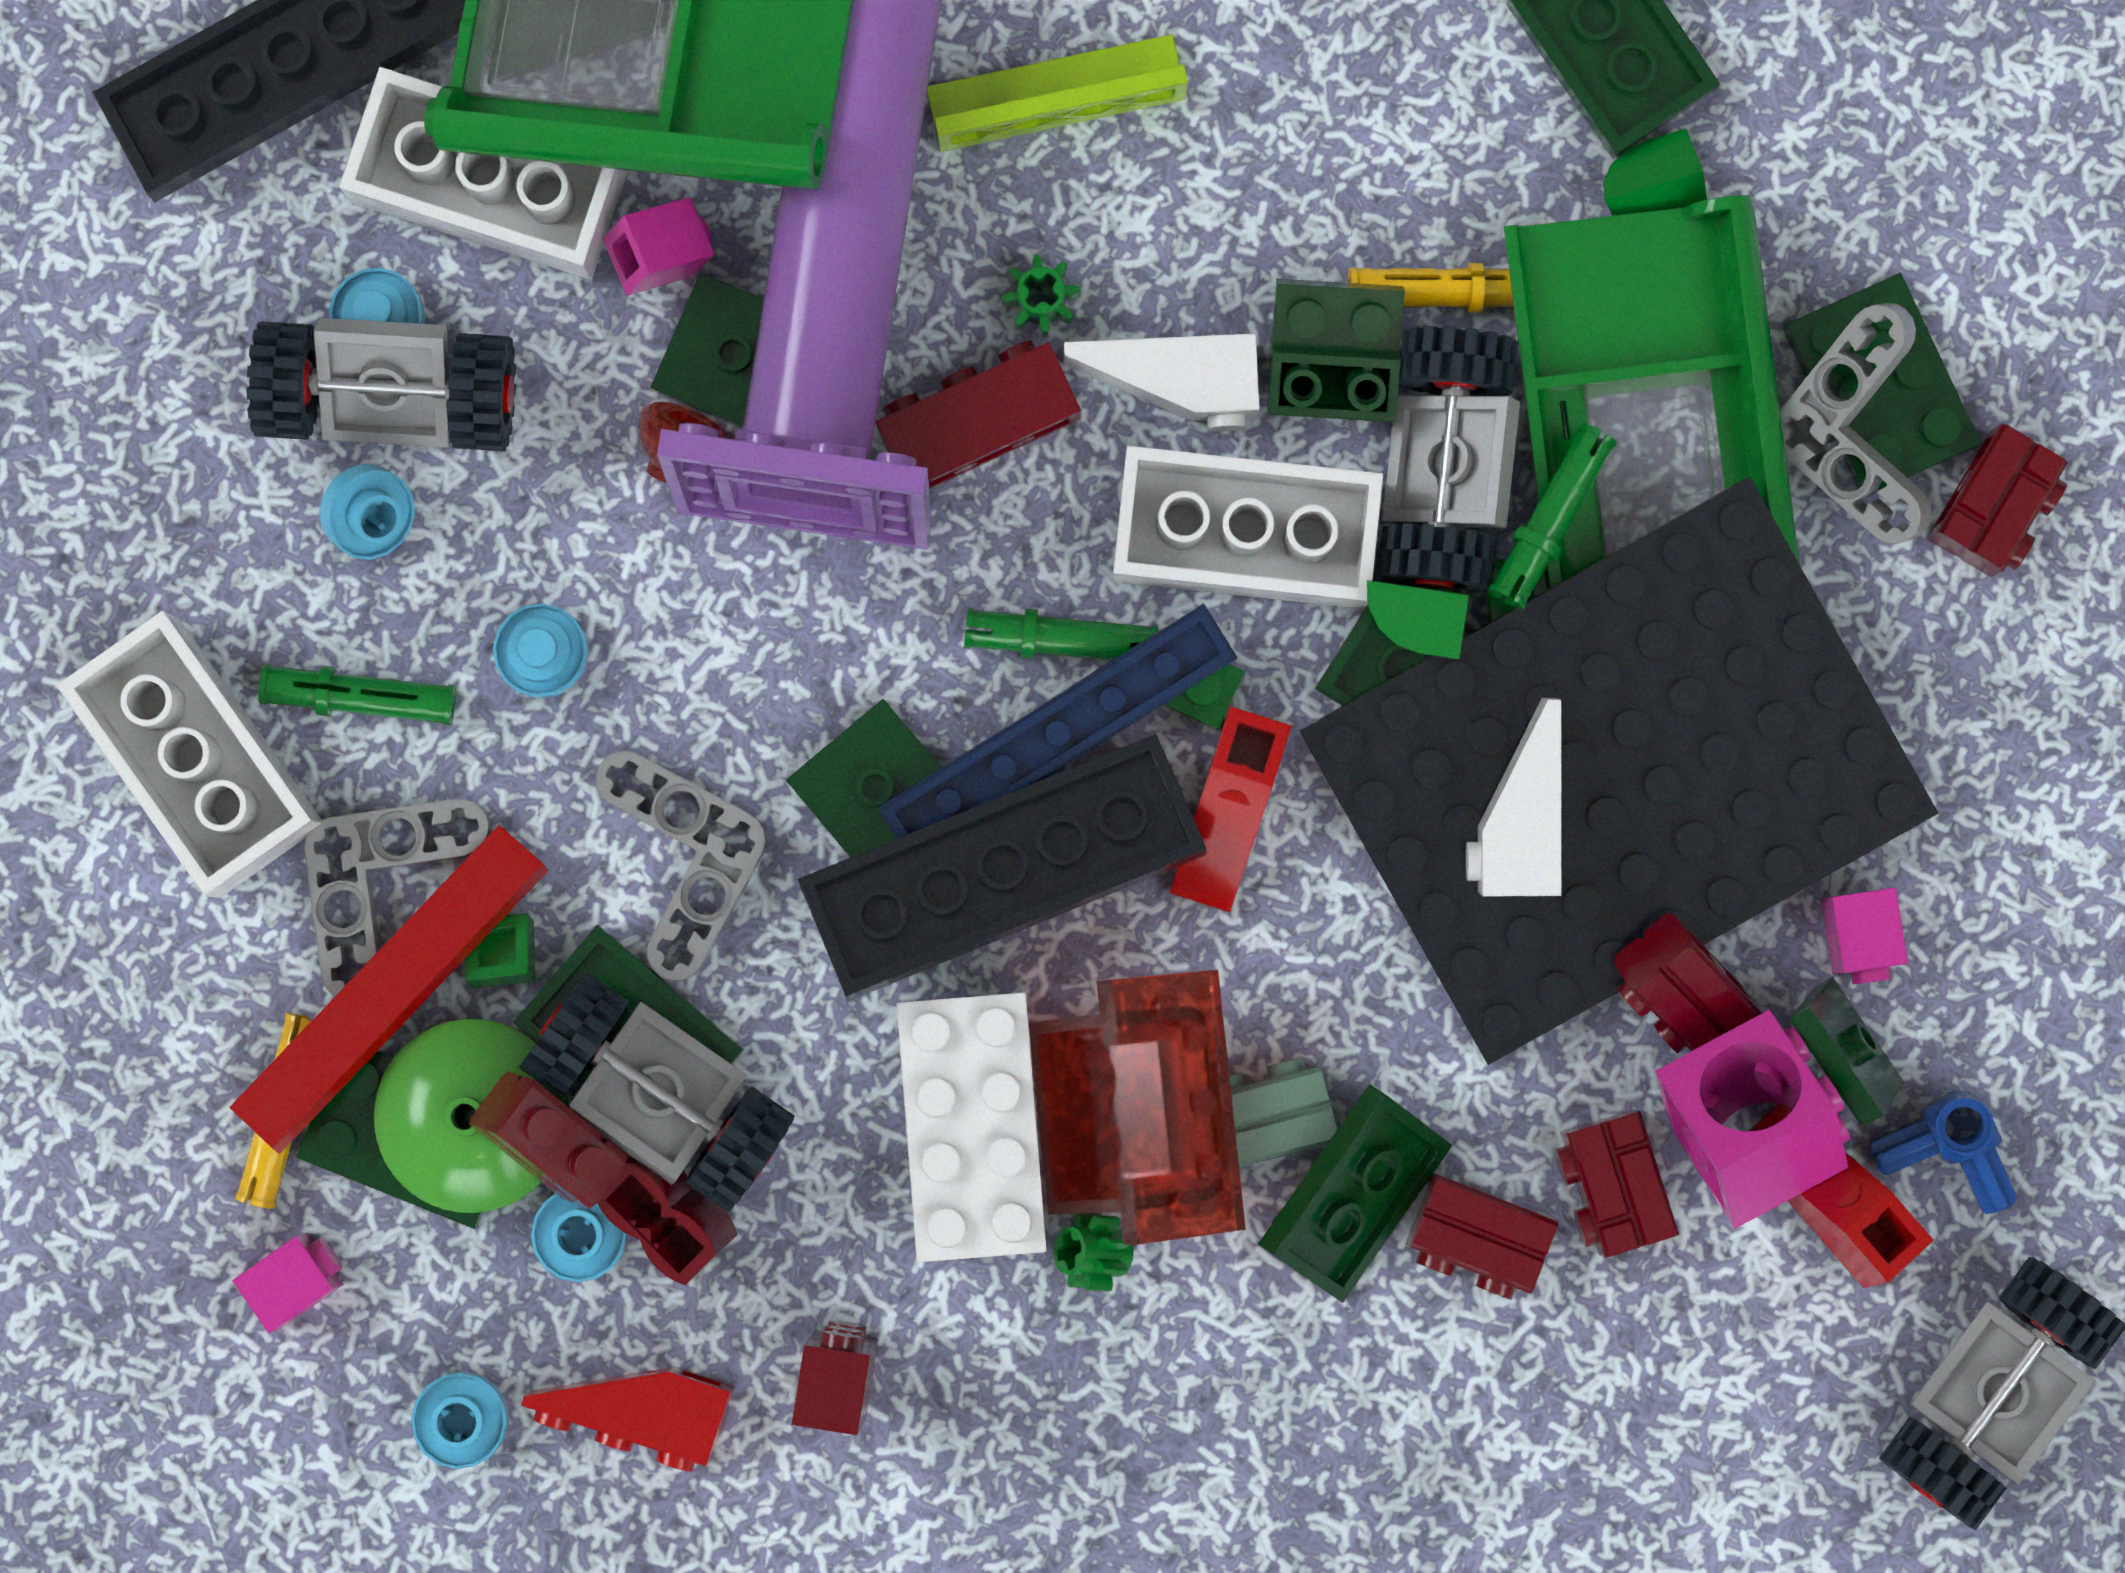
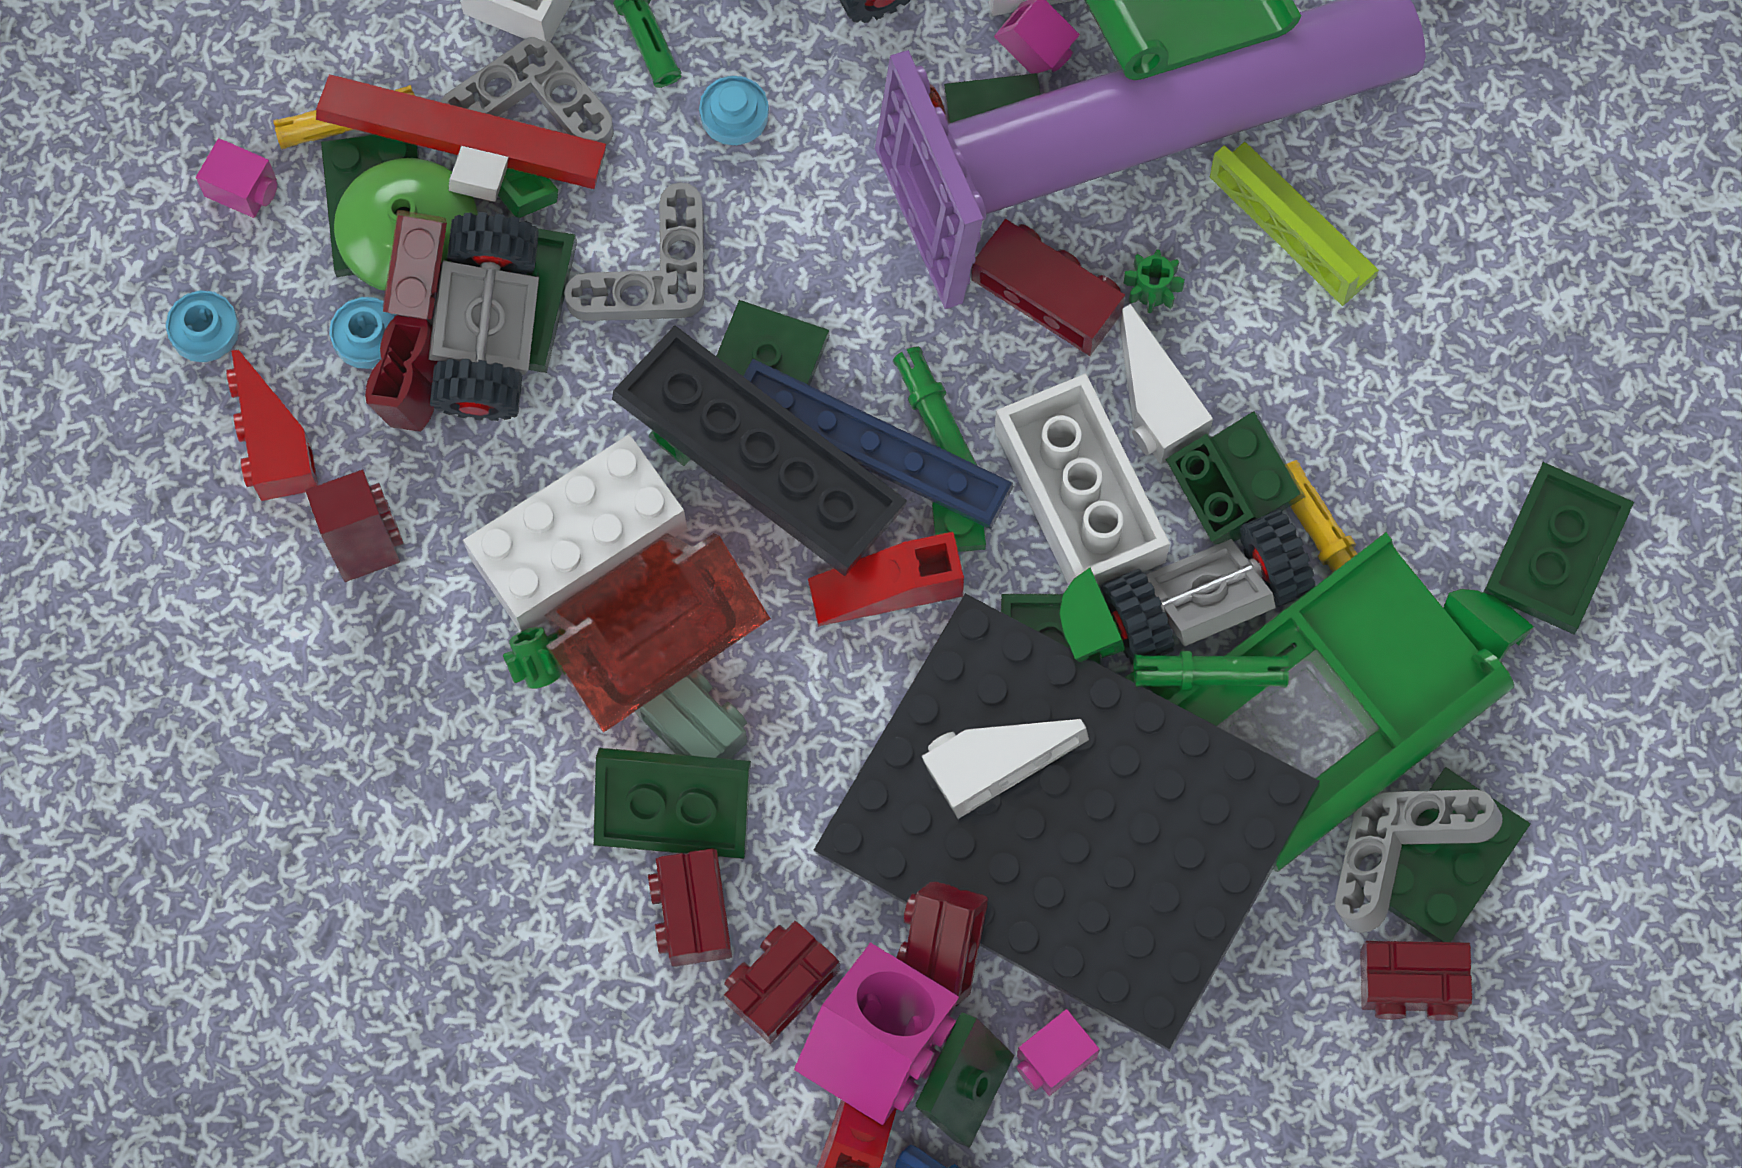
camera: 65 degrees right, 15 degrees down
(462, 999) = (478, 173): none -> white tile

